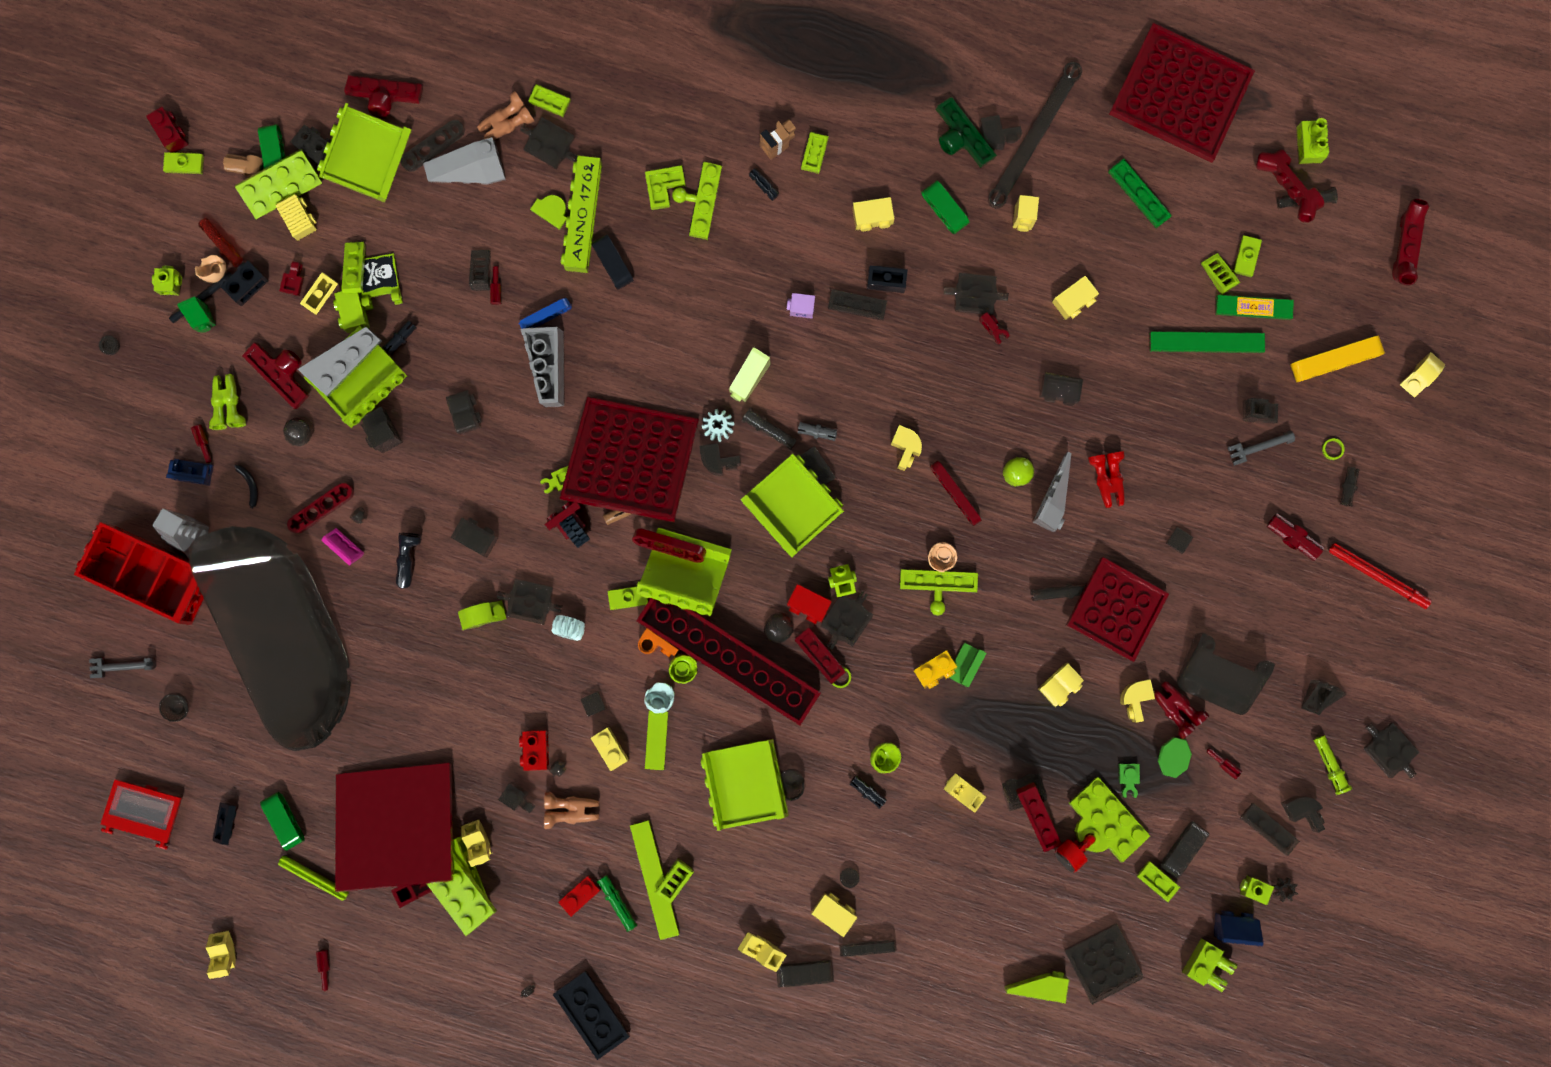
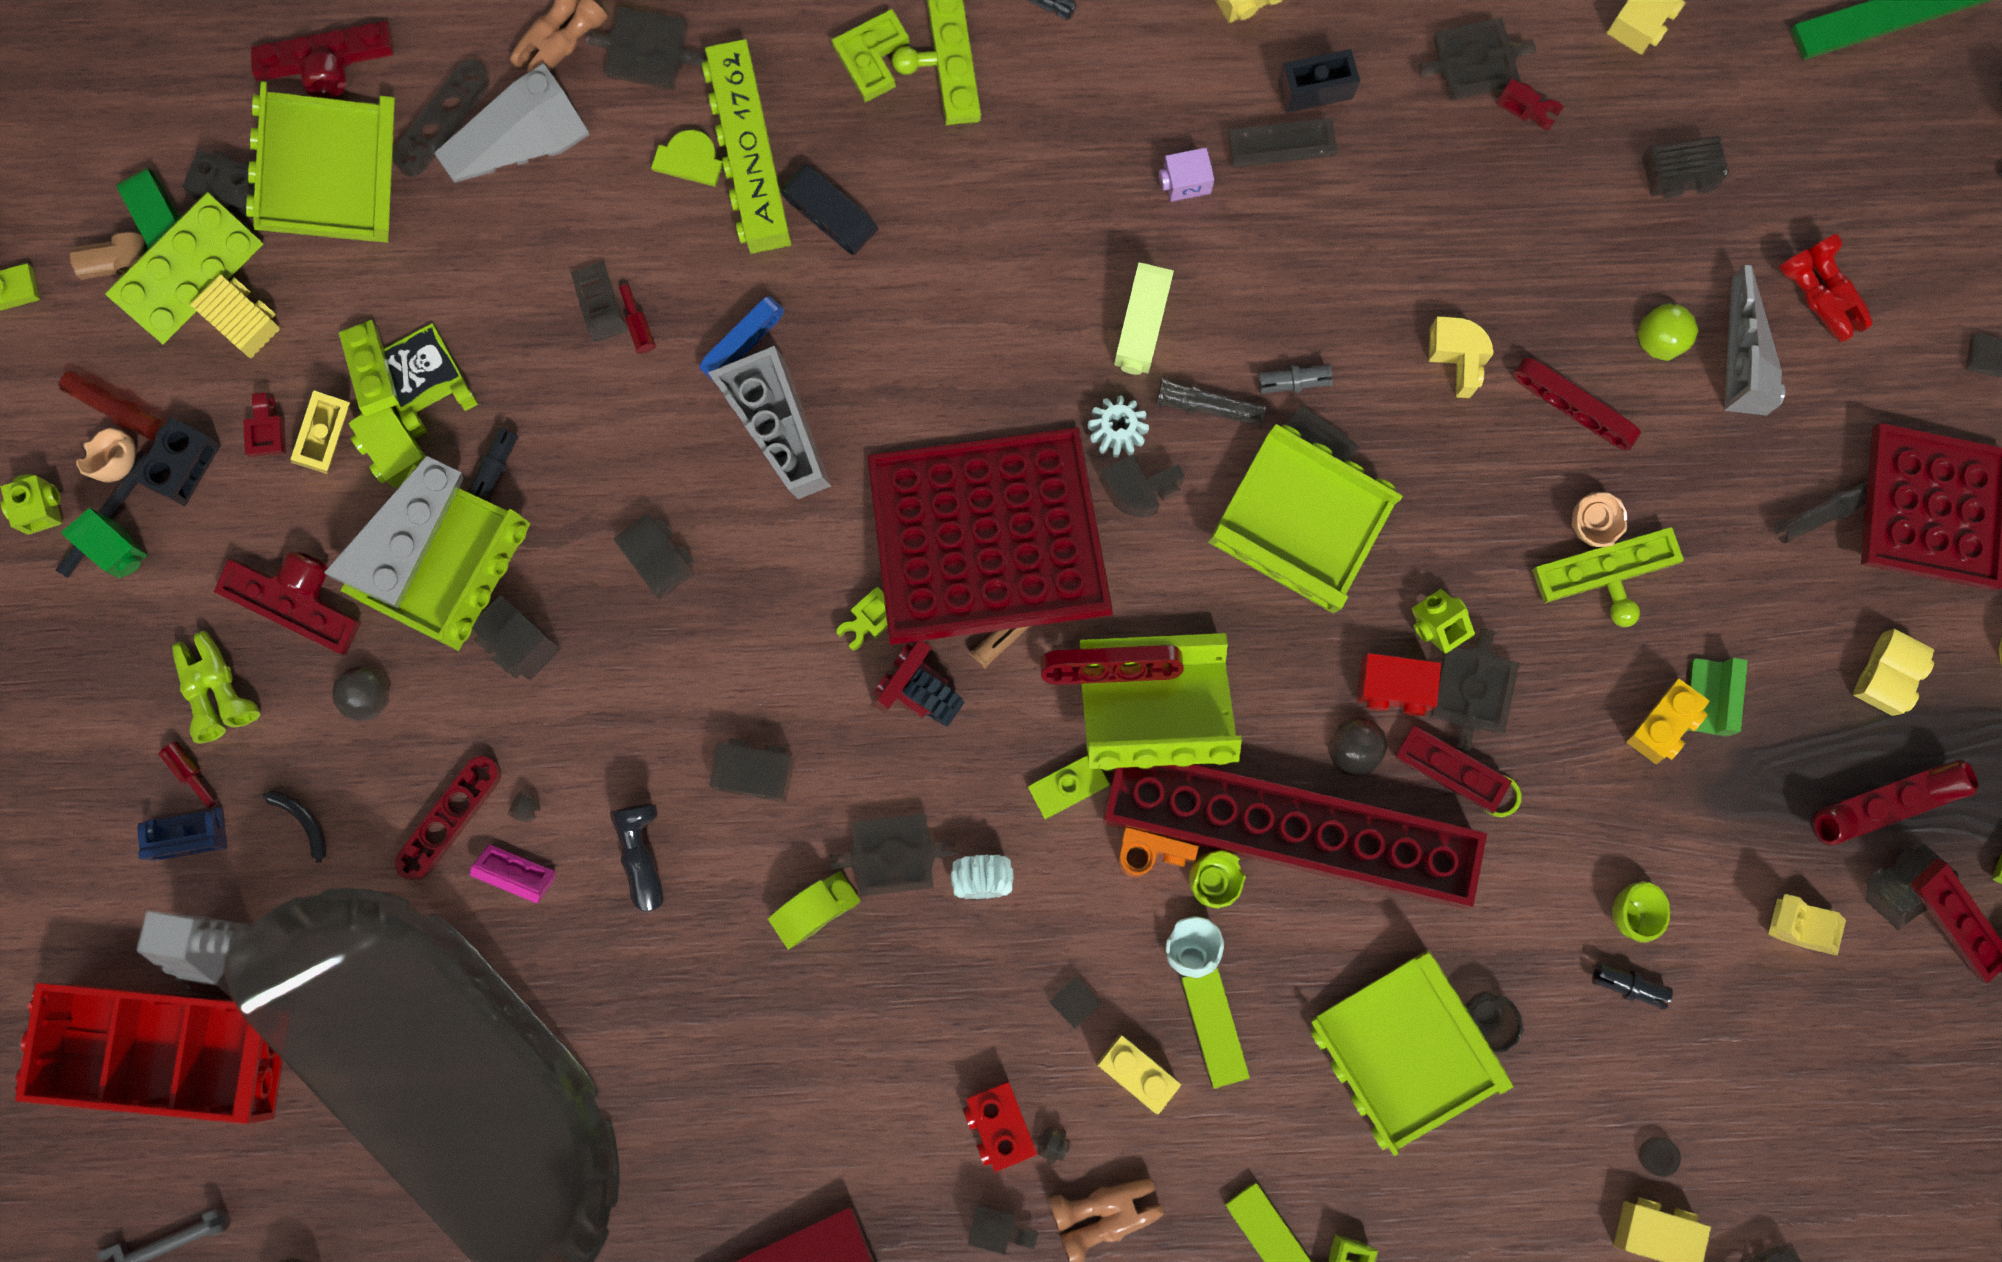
camera: 25 degrees left, 5 degrees down
(1031, 748) = (1894, 802): none -> dark red plate

